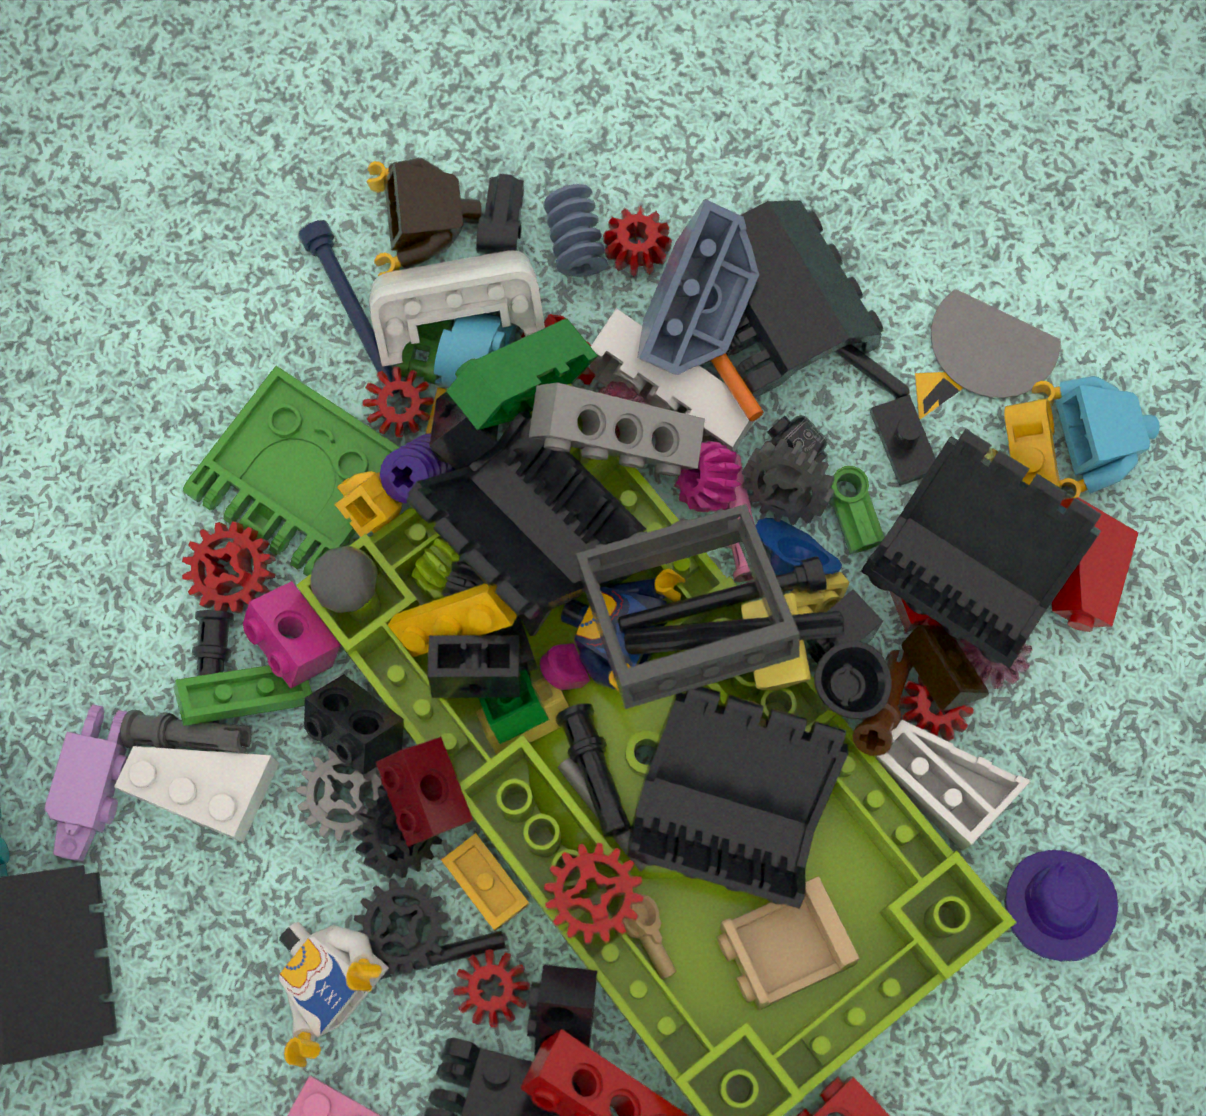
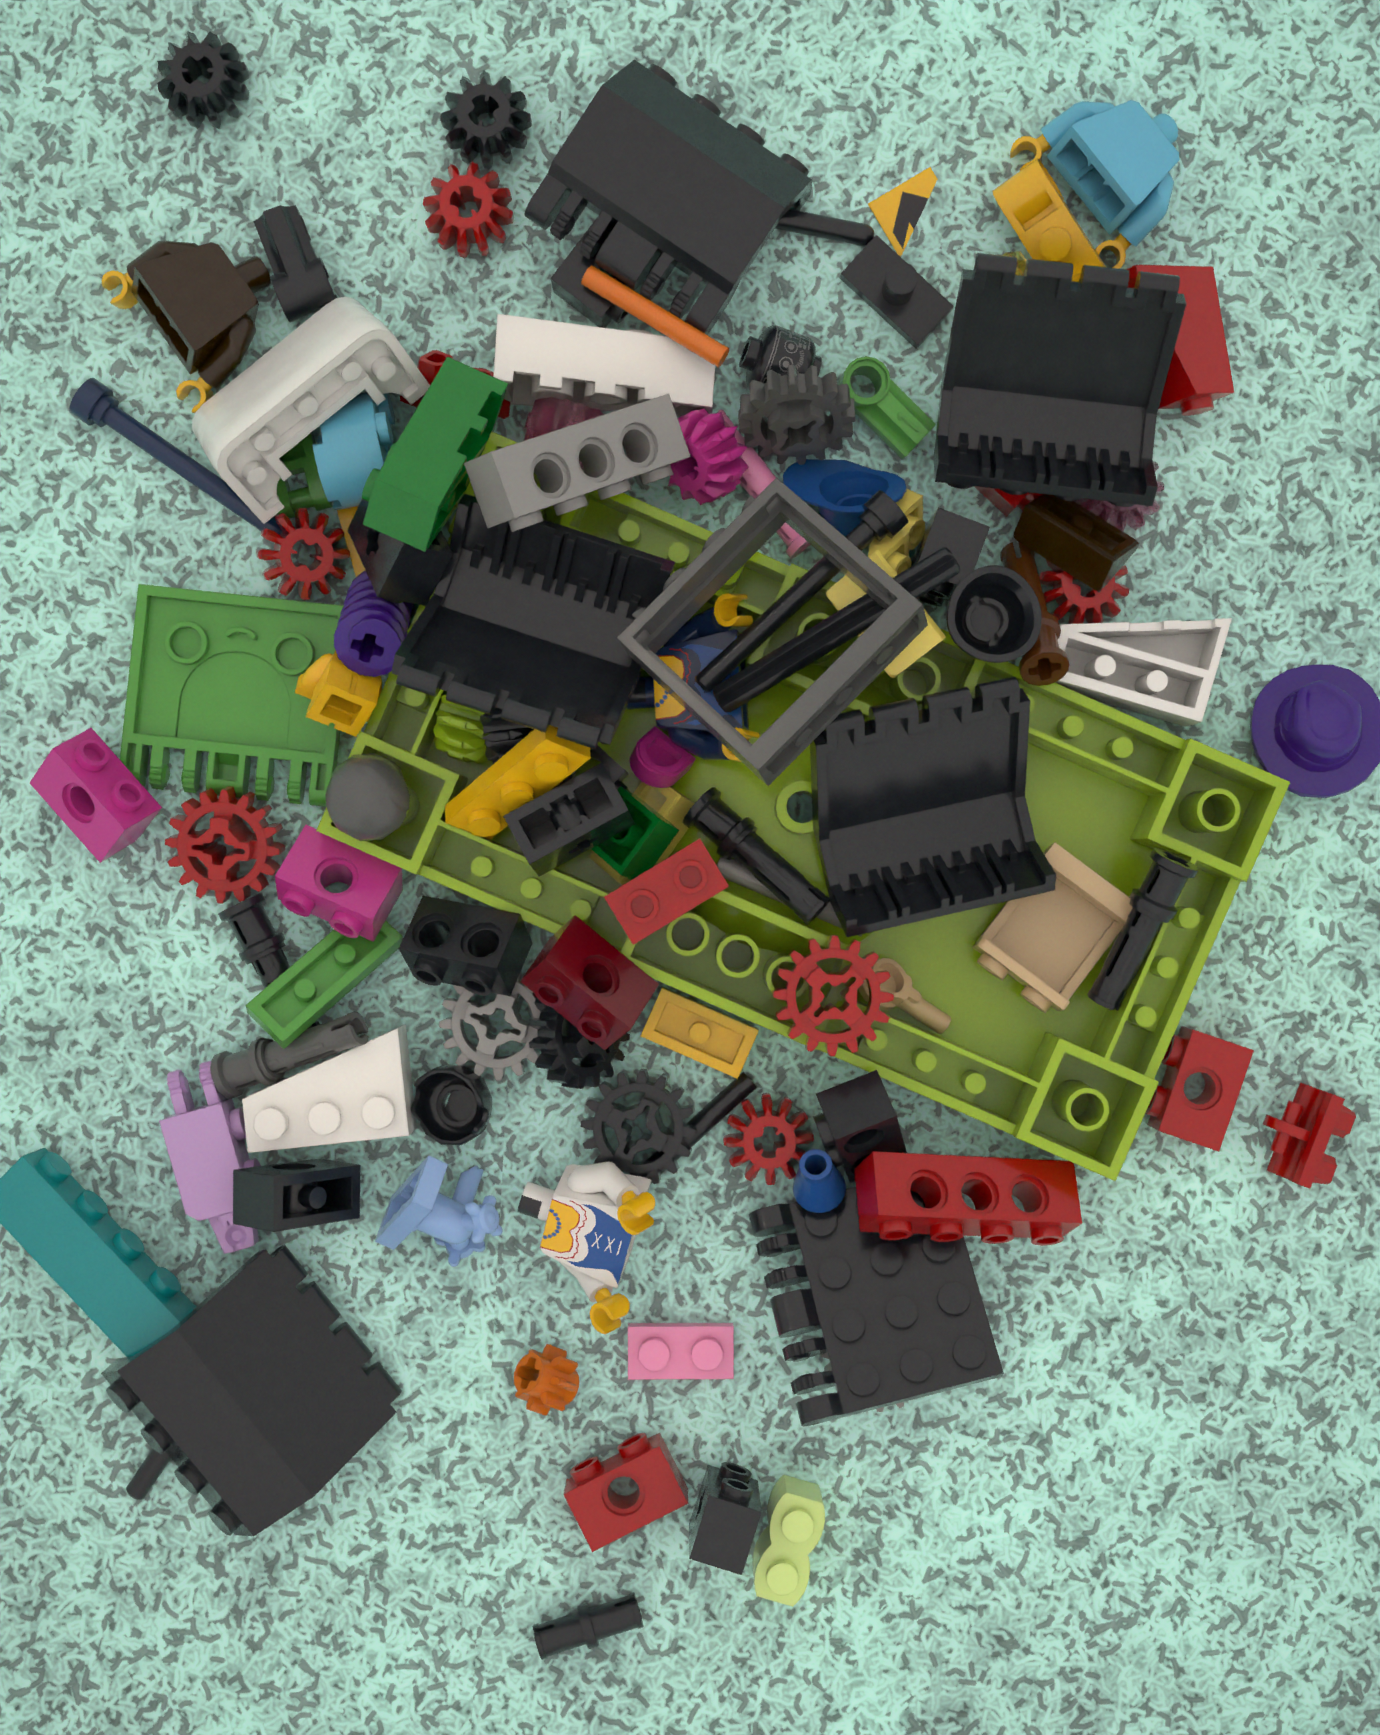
camera: 30 degrees left, 15 degrees up
(129, 836) = (296, 1194): none -> black brick
(161, 487) = (95, 794): none -> dark pink brick
(226, 1081) = (546, 1380): none -> orange gear
(227, 918) = (448, 1220): none -> light blue piece
(287, 846) = (466, 1109): none -> black hair
(497, 87) = (193, 97): none -> black gear
(510, 1038) = (818, 1182): none -> blue cone
(514, 752) = (666, 891): none -> red brick
(573, 231) = (386, 239): sand blue piece -> none
(664, 189) = (473, 136): none -> black gear
(700, 292) = (584, 243): sand blue wedge -> none
(865, 958) = (1150, 908): none -> black pin
(990, 348) = (938, 127): flat silver sticker -> none

